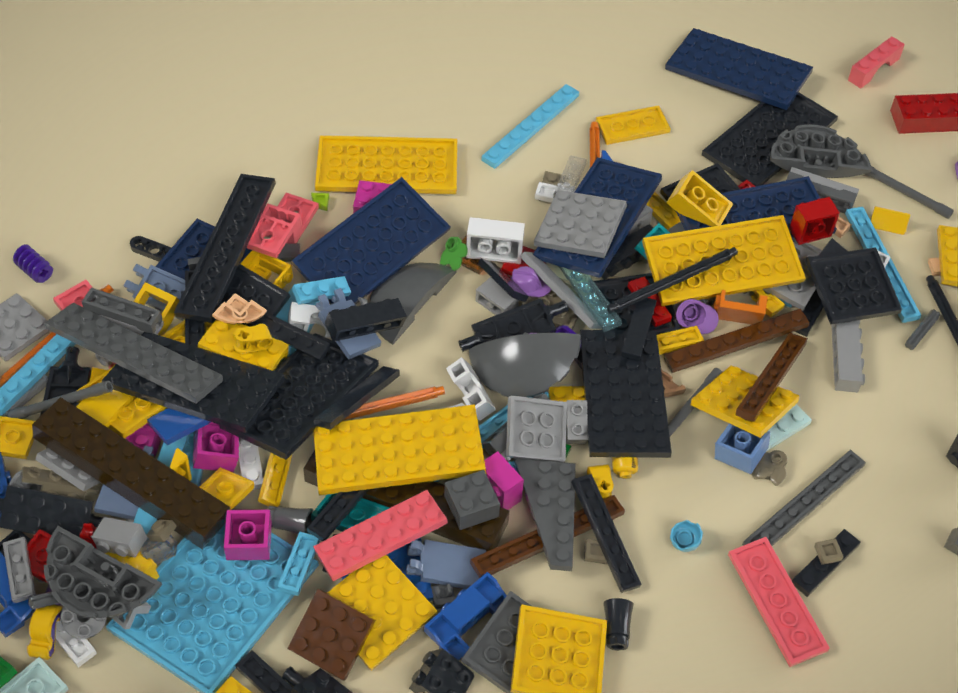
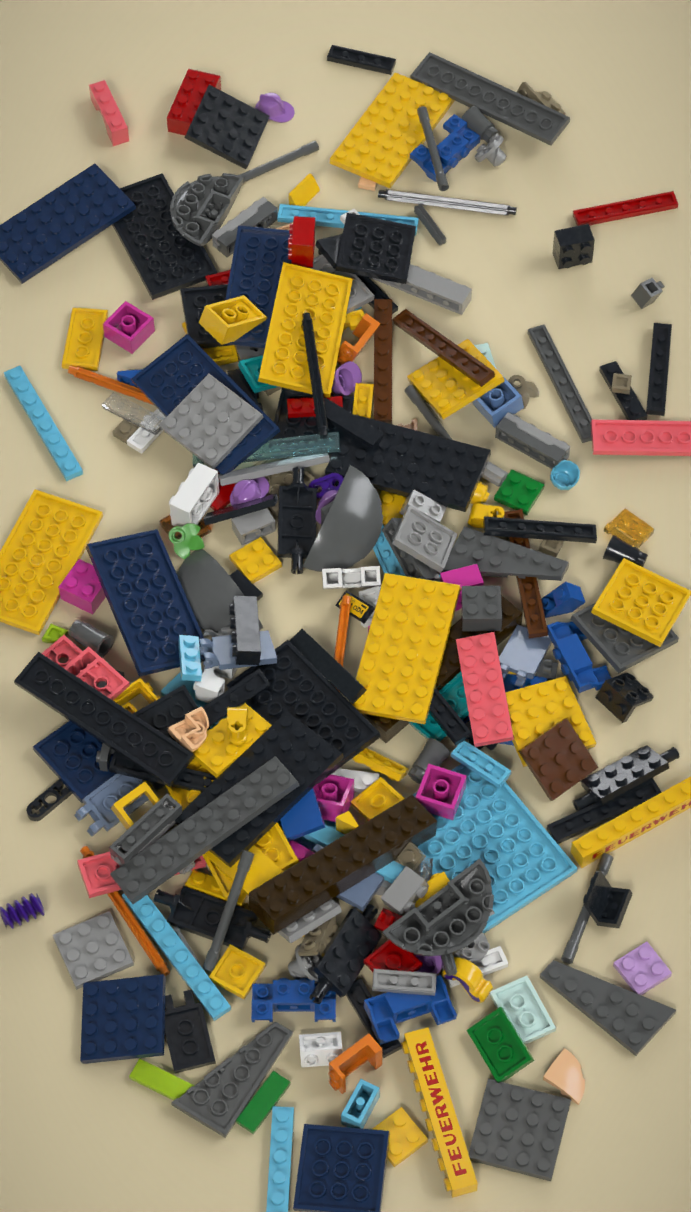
camera: 65 degrees left, 5 degrees up
(322, 222) = (91, 637): none -> dark grey plant
(427, 315) = (245, 585): none -> black tile
(444, 401) = (359, 608): none -> tile
(461, 314) = (255, 560): none -> yellow plate
(532, 581) = (562, 600): none -> blue slope
(648, 504) = (519, 492): none -> green plate
(655, 472) = (494, 474): none -> light grey piece
(657, 144) = (128, 327): none -> dark pink brick
(660, 624) = (631, 526): none -> clear yellow plate
(713, 494) = (531, 441): none -> dark grey piece
(875, 586) = (659, 369): none -> black plate
(918, 140) = (227, 127): none -> black plate

